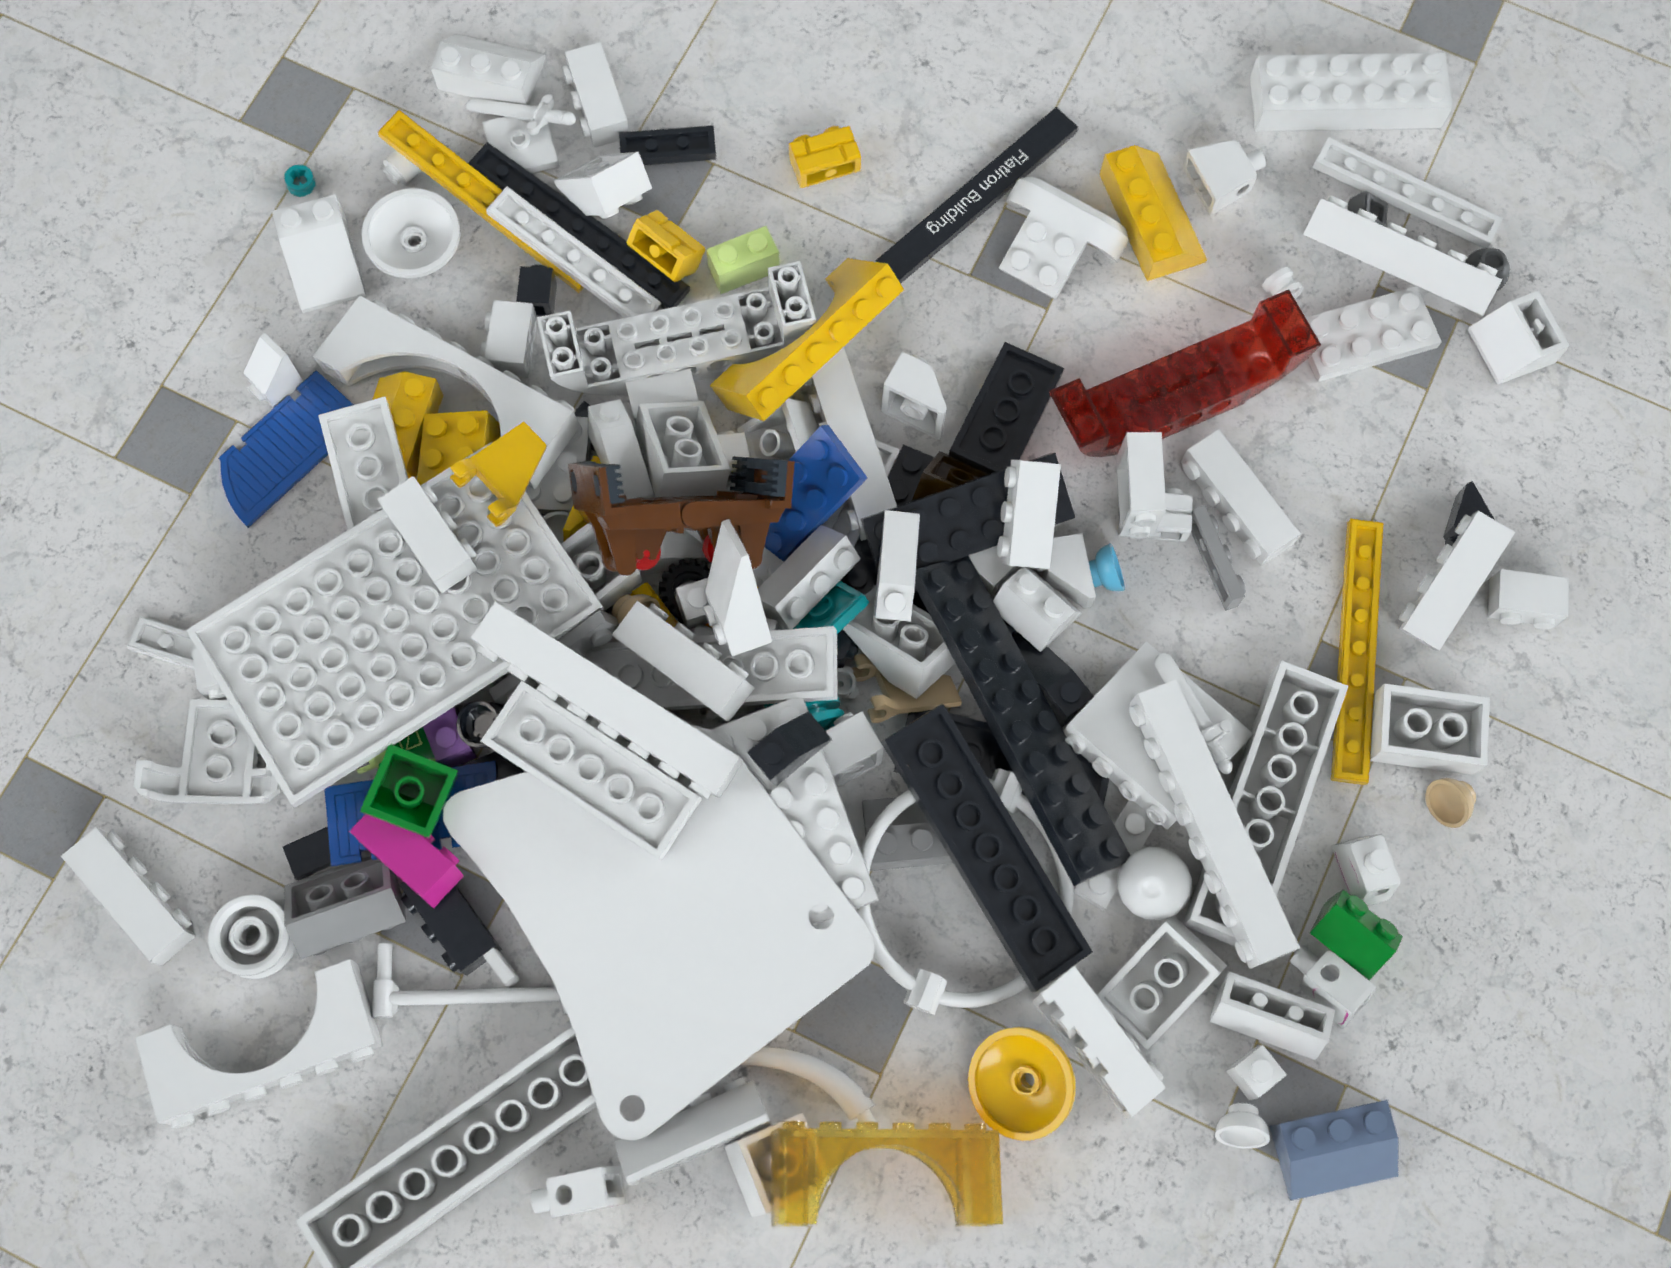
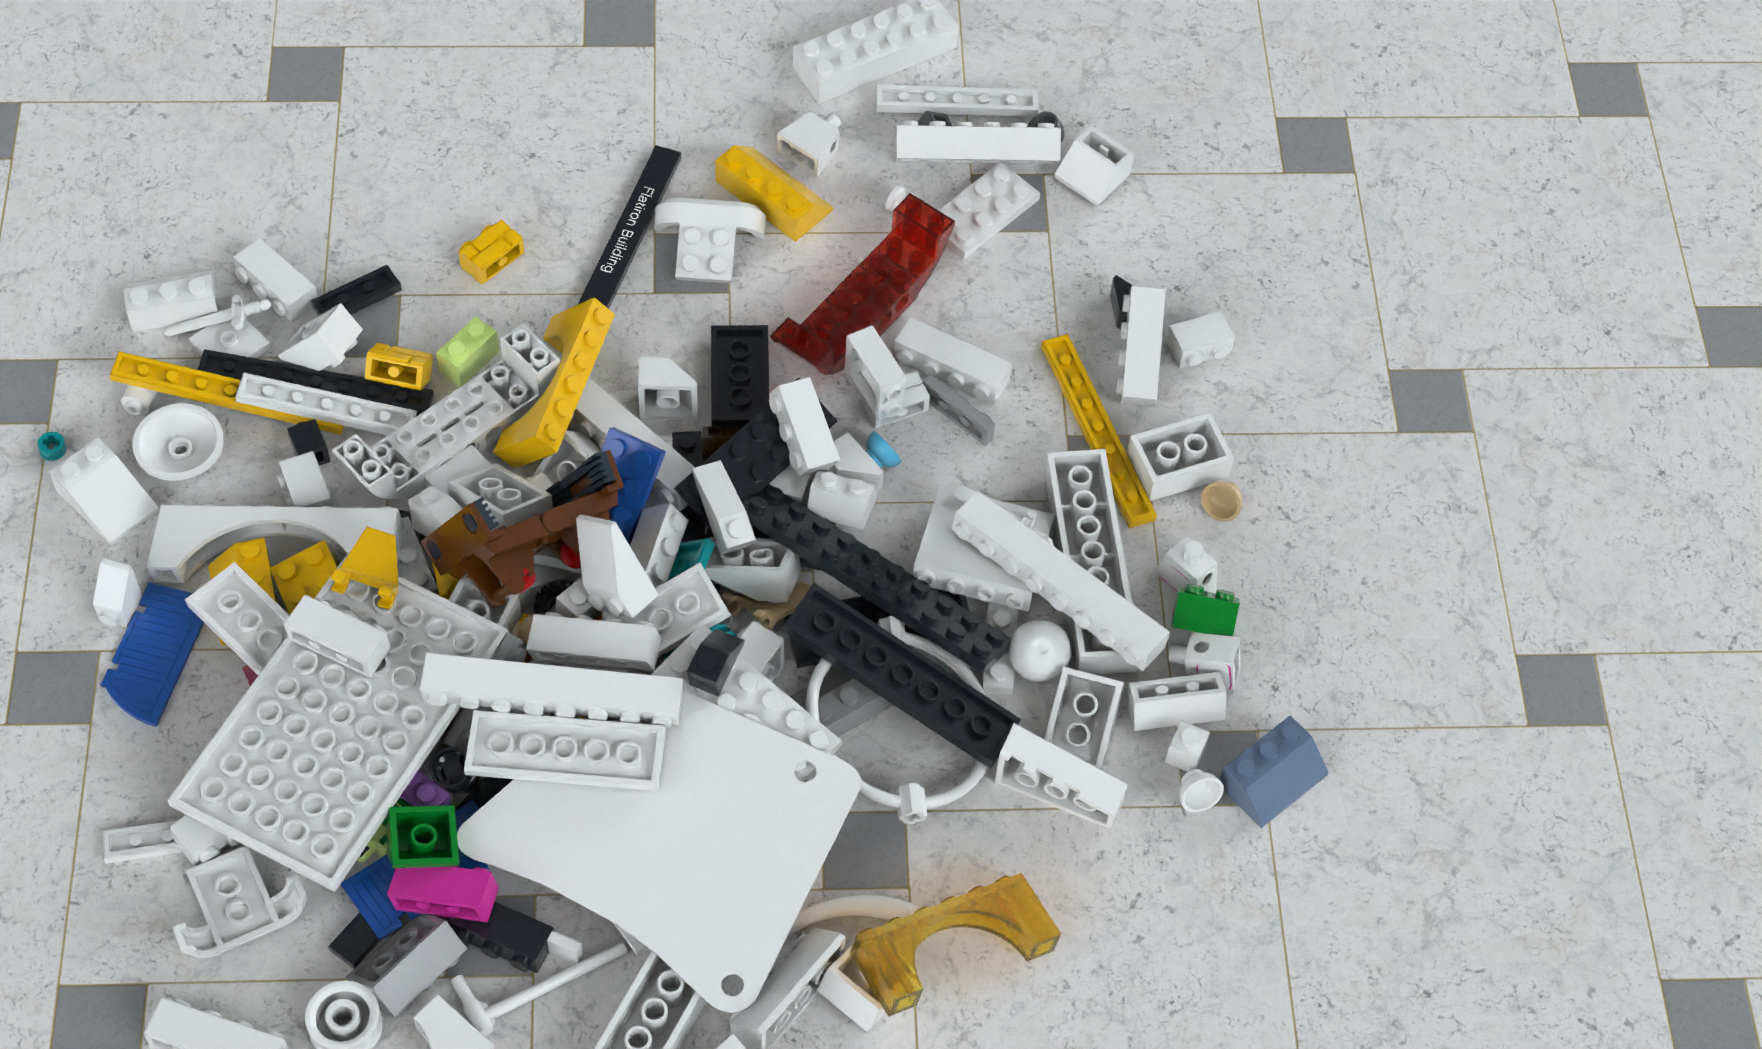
camera: 30 degrees left, 15 degrees down
(1001, 1089) = (998, 828): yellow dish -> none
(1058, 682) = (889, 542): black slope -> none

